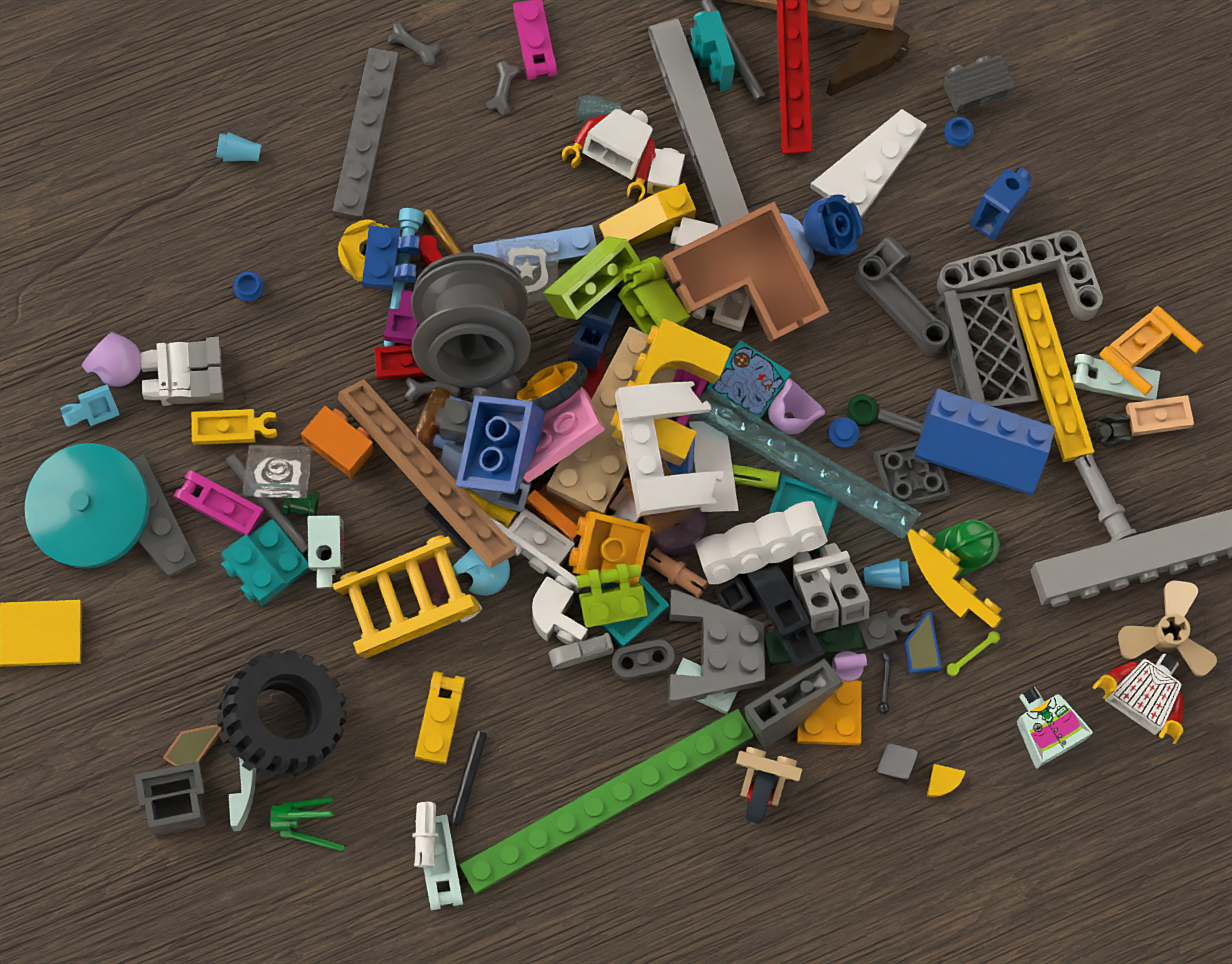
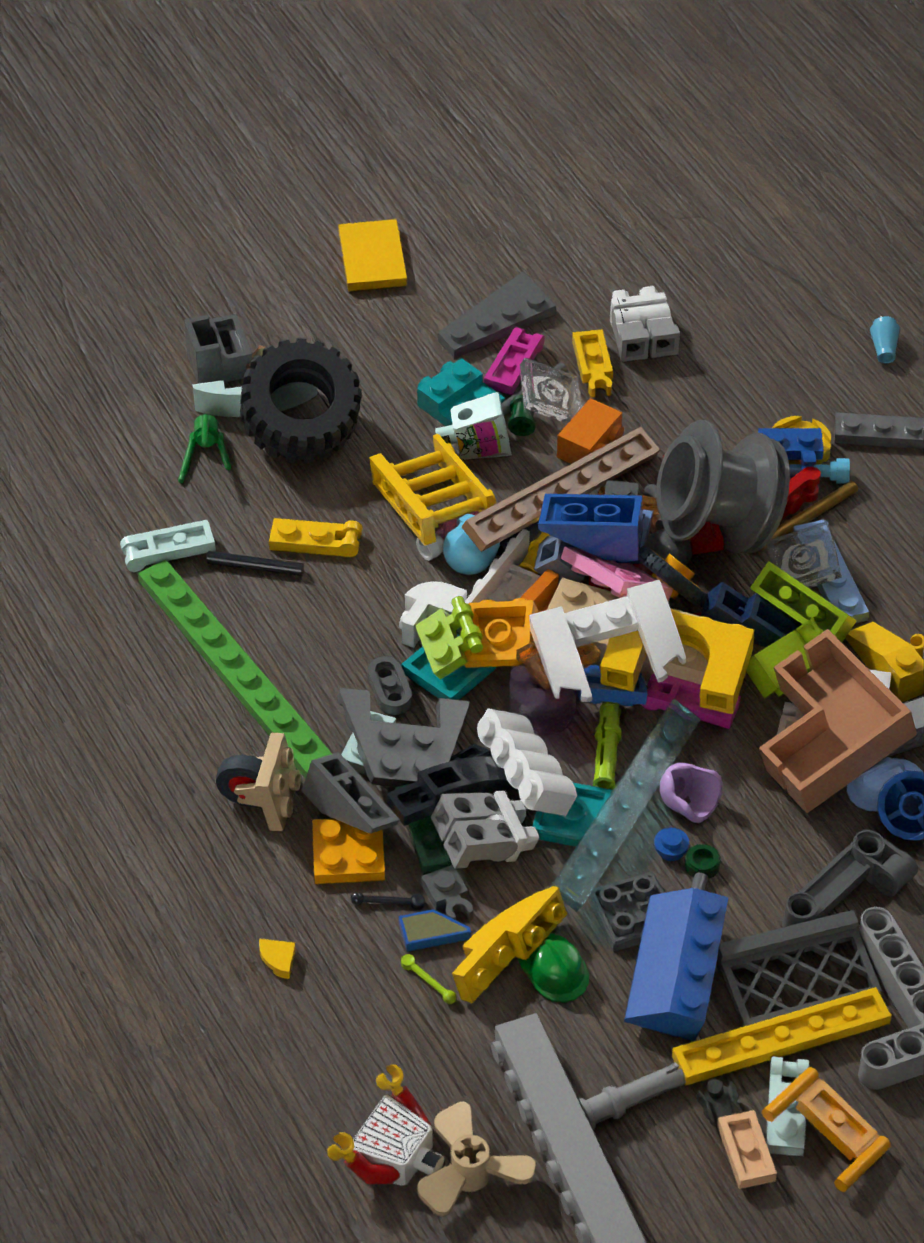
camera: 90 degrees right, 25 degrees down
(87, 505) = (498, 271): teal dish -> none
(95, 406) = (597, 266): medium azure plate -> none
(114, 360) = (643, 267): lavender helmet -> none
(248, 286) = (742, 361): blue plate -> none
(425, 835) = (190, 520): white axle -> none
(581, 651) = (392, 633): light grey piece -> none
(677, 572) = (493, 700): nougat pin -> none
(713, 454) = (602, 718): white sticker -> none
(750, 380) = (722, 751): tile -> none
(849, 665) = (400, 859): lavender plate -> none
(888, 574) = (508, 887): dark azure cone -> none
(897, 762) = (294, 915): slope -> none
(1049, 727) = (344, 1047): torso -> none

